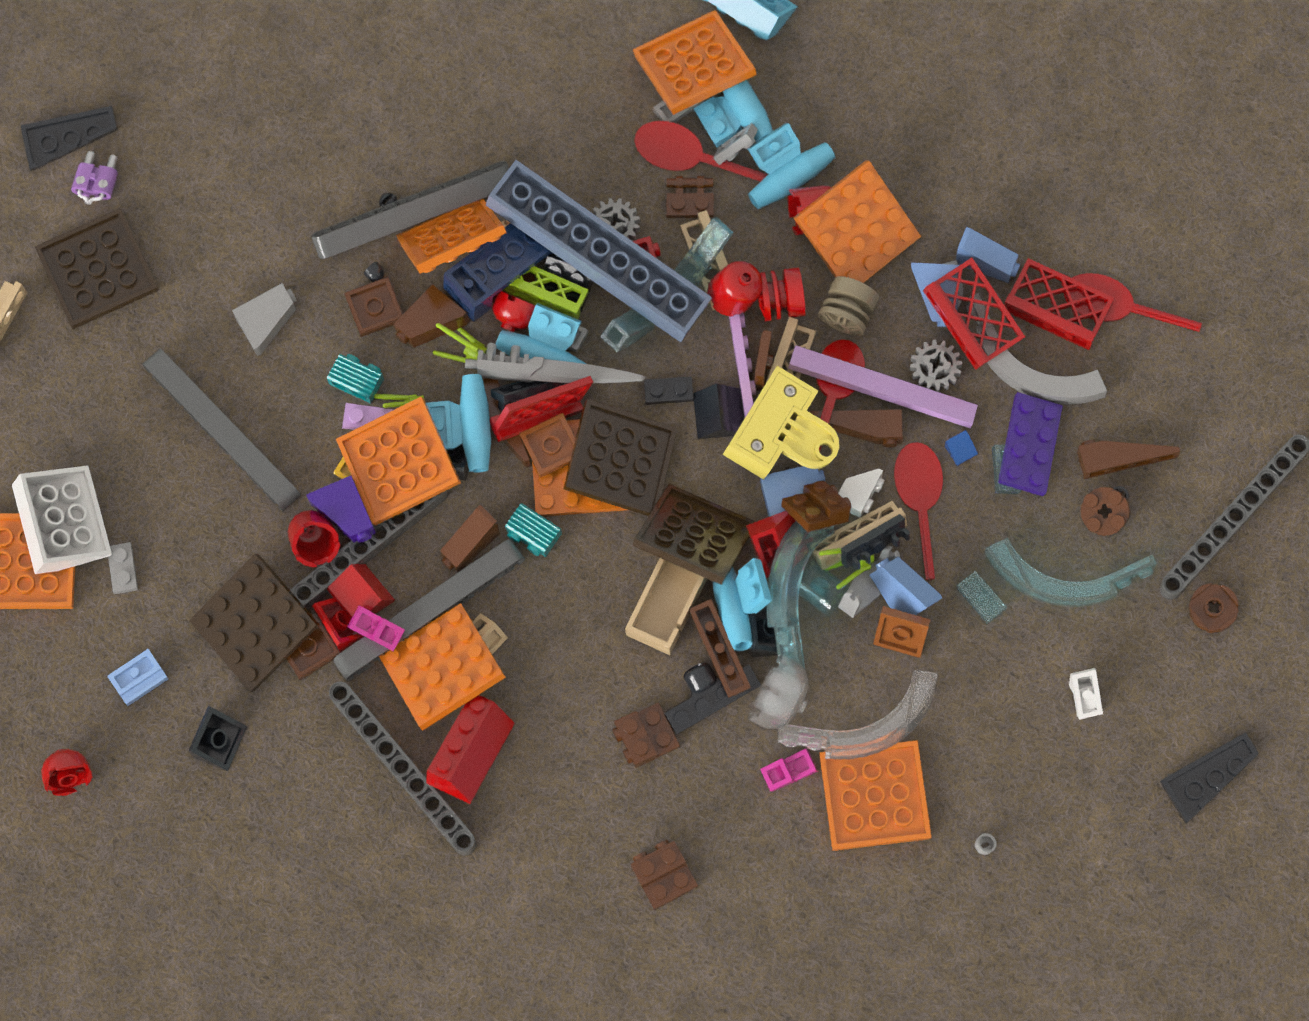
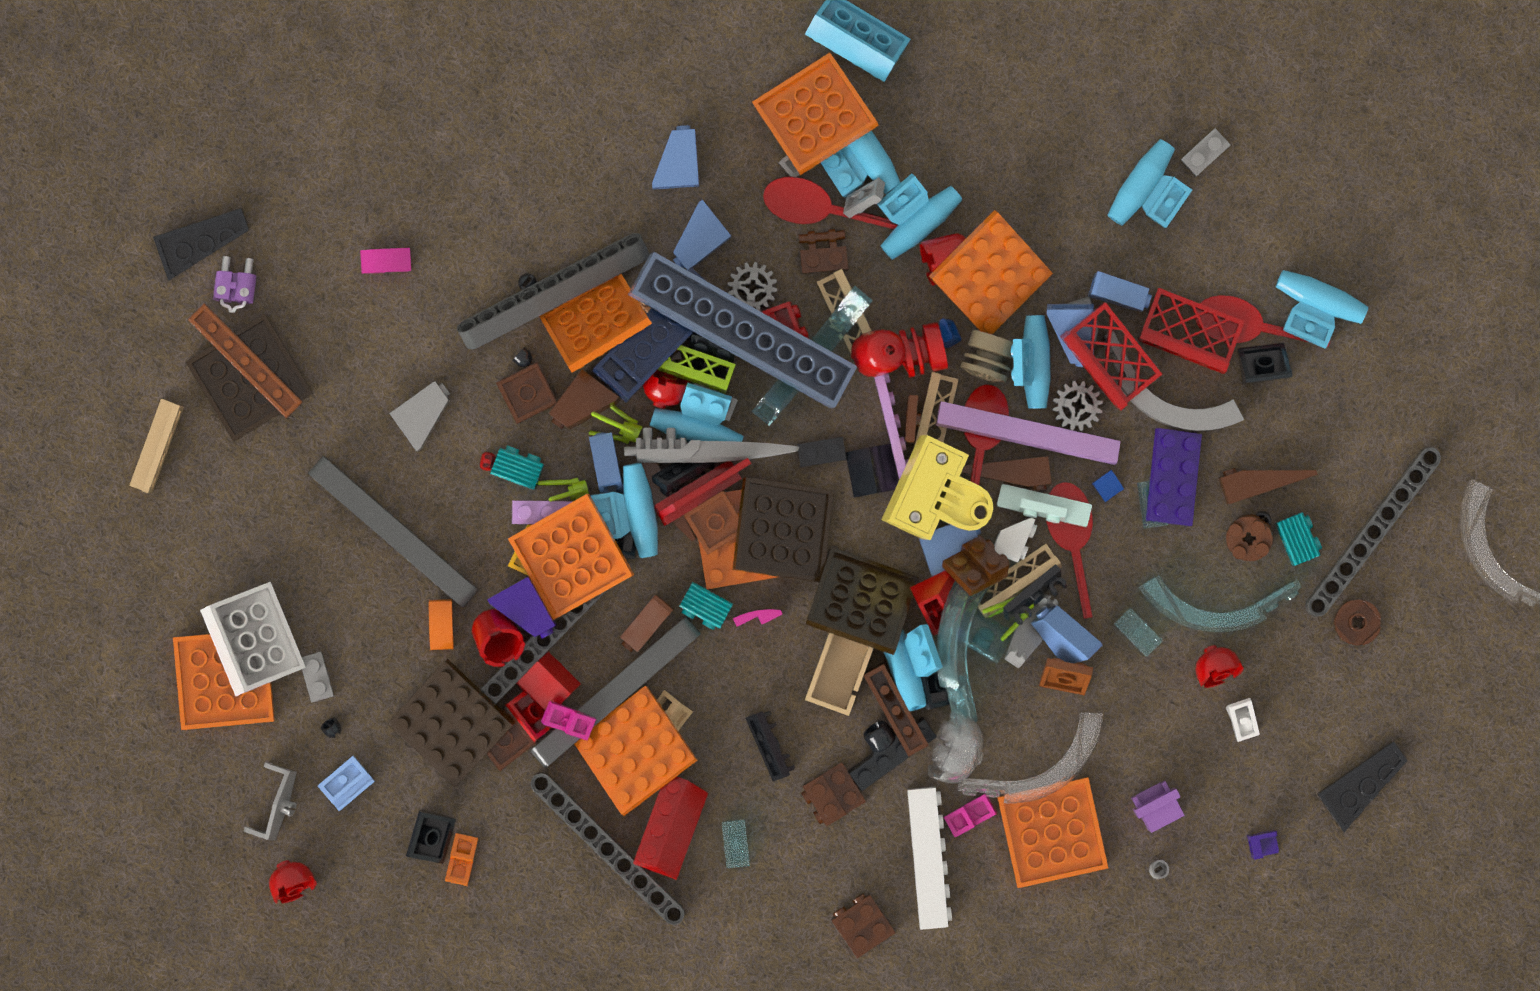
camera: 10 degrees left, 15 degrees up
(65, 691) = (280, 805): none -> light grey piece
(94, 249) = (245, 361): none -> dark orange tile
(130, 619) = (331, 727): none -> black hinge
(247, 767) = (461, 859): none -> orange slope
(249, 168) = (385, 260): none -> dark pink slope
(257, 526) = (441, 624): none -> orange slope
(324, 370) = (487, 461): none -> red rock
(446, 376) = (606, 463): none -> medium blue slope
(537, 776) = (735, 843): none -> clear light blue plate
(553, 99) = (679, 161): none -> medium blue slope
(570, 168) = (700, 238): none -> medium blue slope
(583, 677) = (768, 745): none -> black plate
(593, 545) = (764, 616): none -> dark pink slope
(739, 810) = (927, 857): none -> white brick
(810, 284) = (949, 333): none -> blue slope
(892, 316) = (1032, 361): none -> medium azure plate
(893, 461) = (1044, 505): none -> light aqua bracket
(989, 777) = (1157, 806): none -> medium lavender plate
(1024, 161) = (1148, 187): none -> medium azure plate
(1063, 636) = (1217, 665): none -> red cylinder
(1085, 135) = (1205, 152): none -> light grey plate
(1099, 827) = (1263, 844): none -> dark purple panel
(1132, 343) = (1264, 363): none -> black slope
(1156, 516) = (1298, 538): none -> teal brick
(1190, 289) = (1317, 306): none -> medium azure plate

